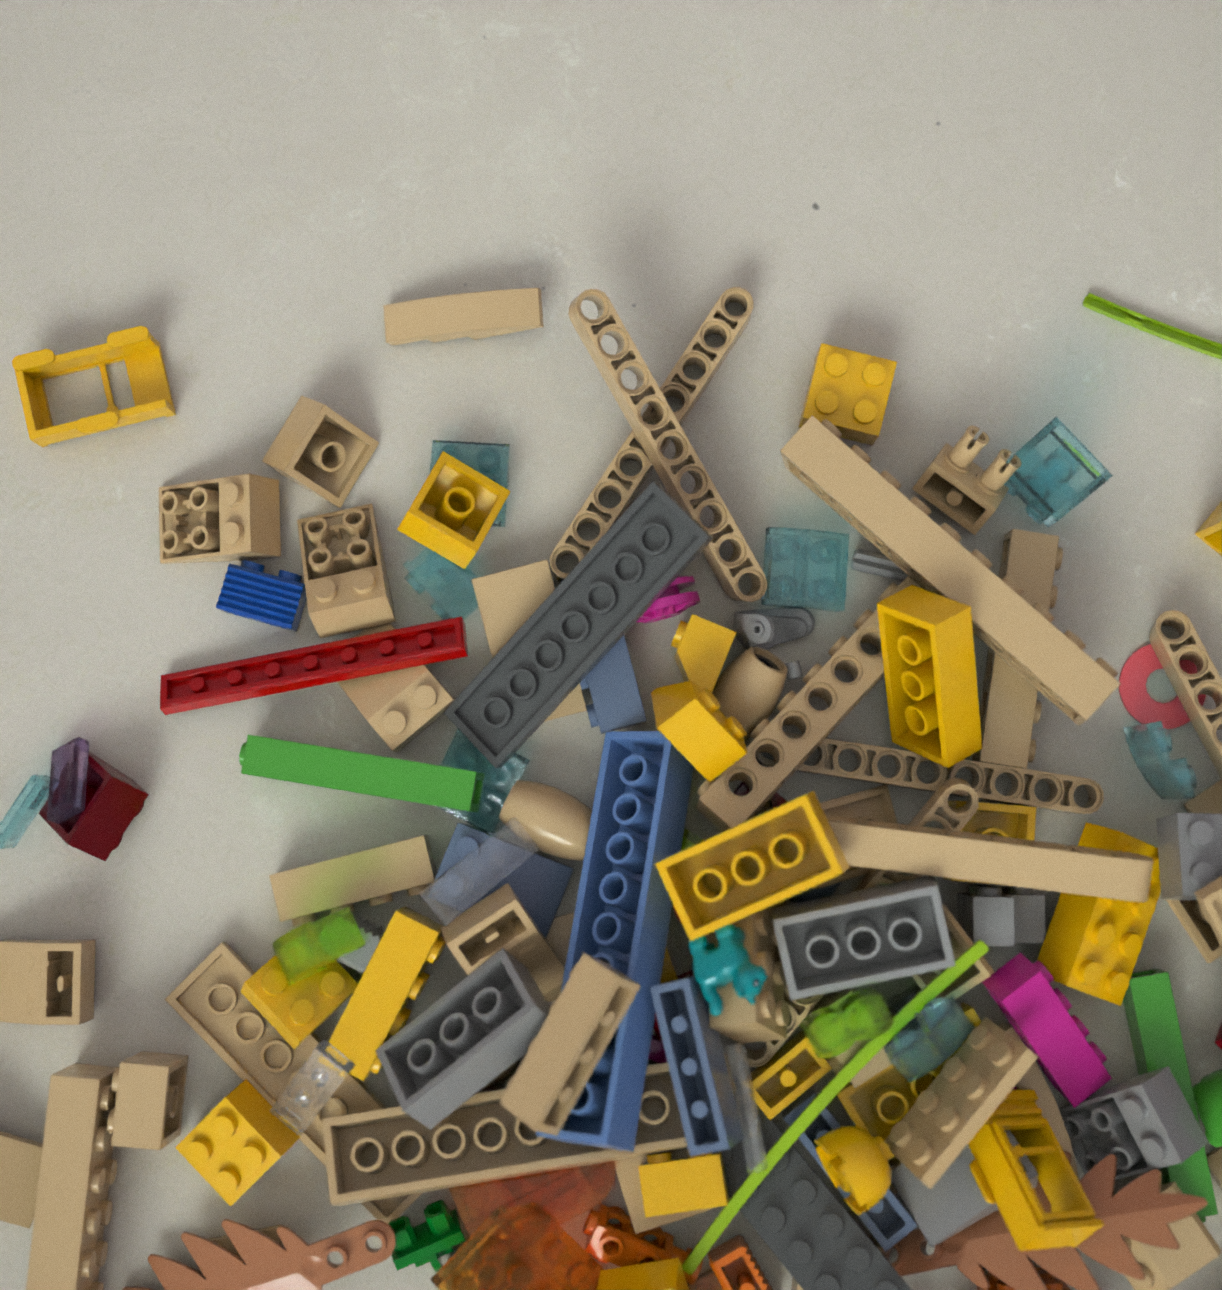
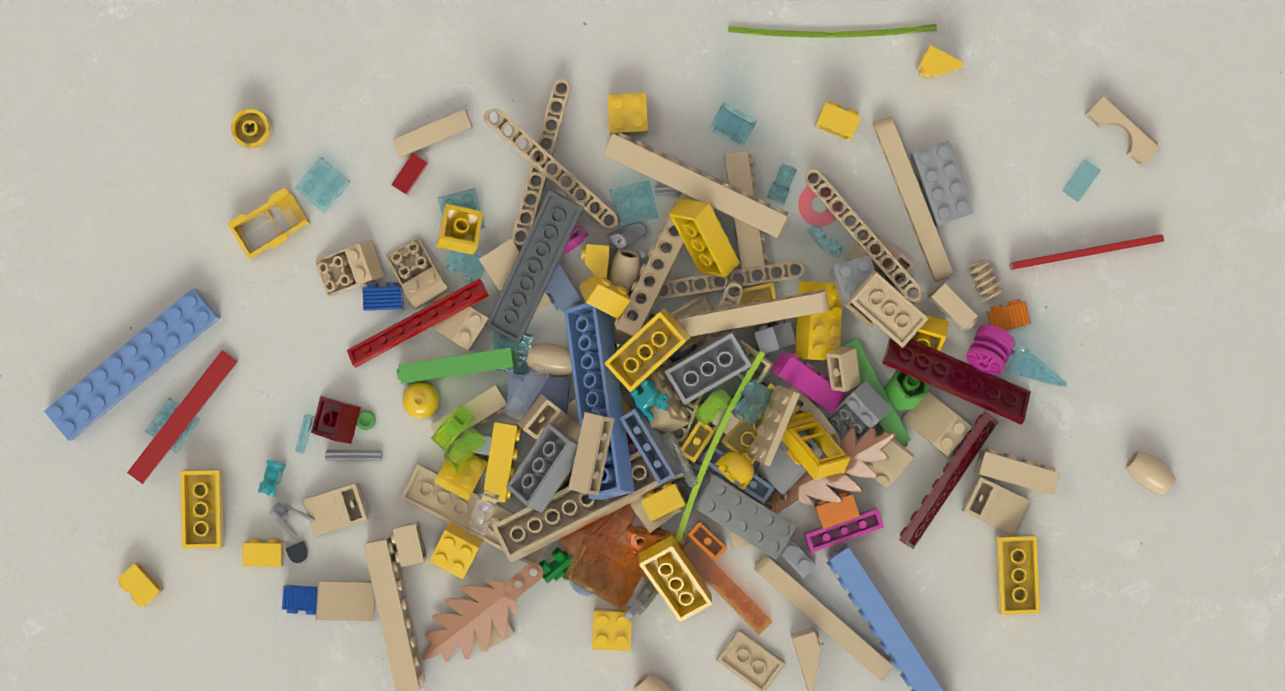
camera: 20 degrees left, 5 degrees up
(68, 780) = (321, 412): clear purple tile -> none
(94, 397) = (270, 229): none -> clear tile
(104, 884) = (353, 455): none -> light grey axle
(135, 216) = (262, 127): none -> yellow brick
(152, 824) = (366, 420): none -> bright green tile
(222, 347) = (322, 184): none -> clear light blue slope
(271, 818) = (421, 399): none -> yellow cylinder
(310, 894) = (452, 427): none -> clear neon green brick
(320, 451) = (386, 220): tan slope -> none
(395, 380) = (409, 174): none -> red slope
(963, 487) = (695, 141): tan brick -> none
(1103, 623) = (781, 186): none -> clear light blue piece
(1129, 1027) = (843, 369): none -> tan brick

